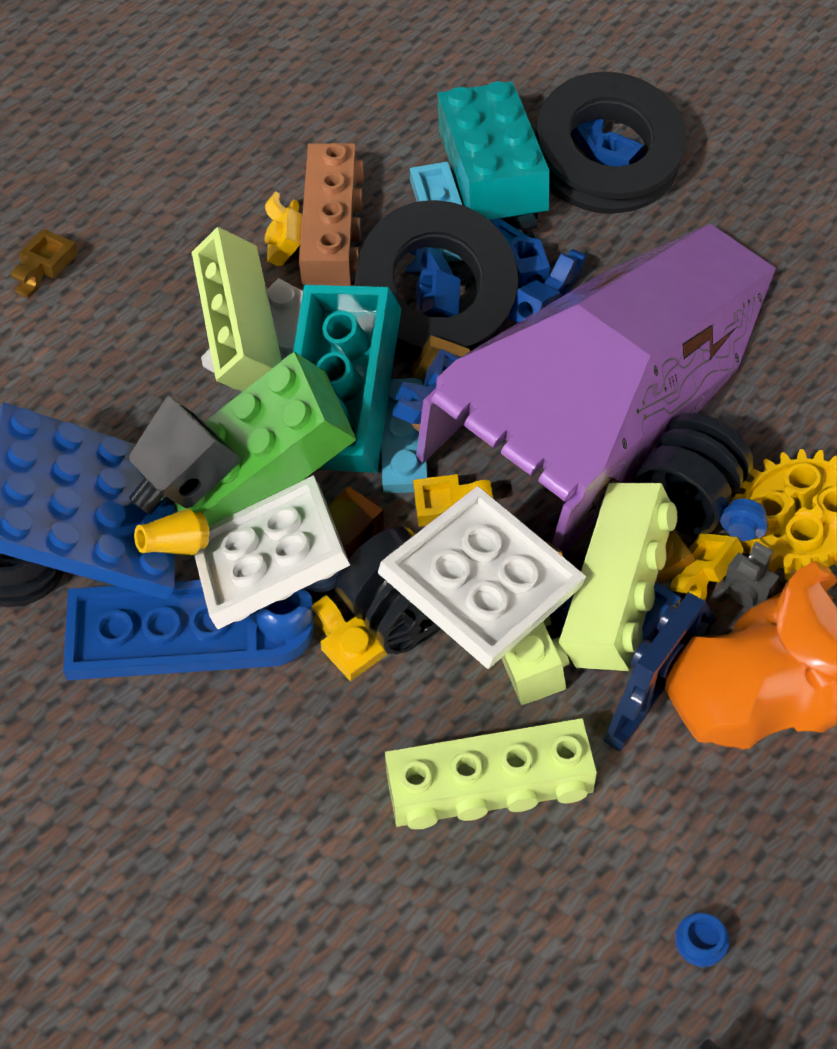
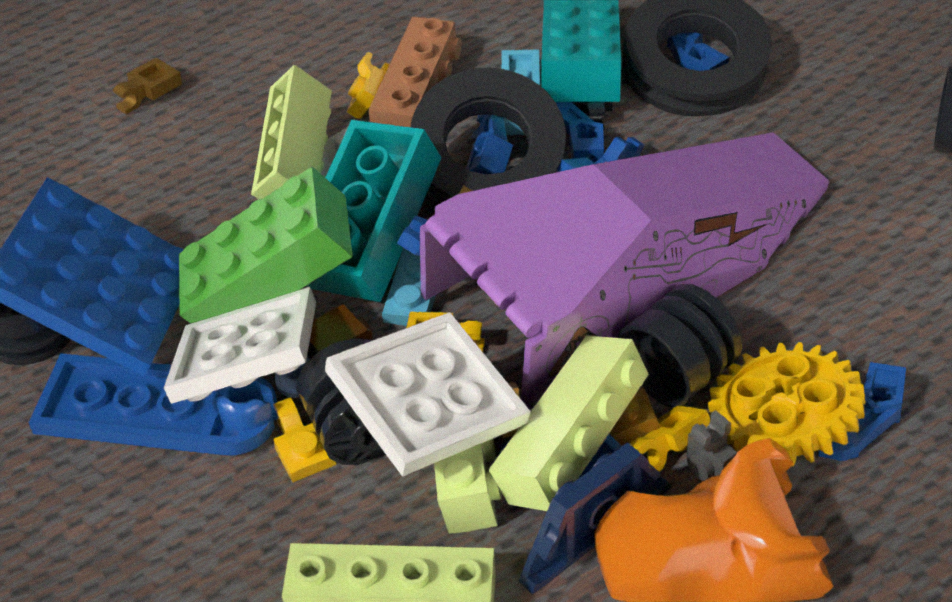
camera: 15 degrees right, 10 degrees down
(174, 534) = (162, 315): yellow cone -> none
(179, 458) = (185, 248): torso -> none
(745, 519) = (718, 393): blue plate -> none

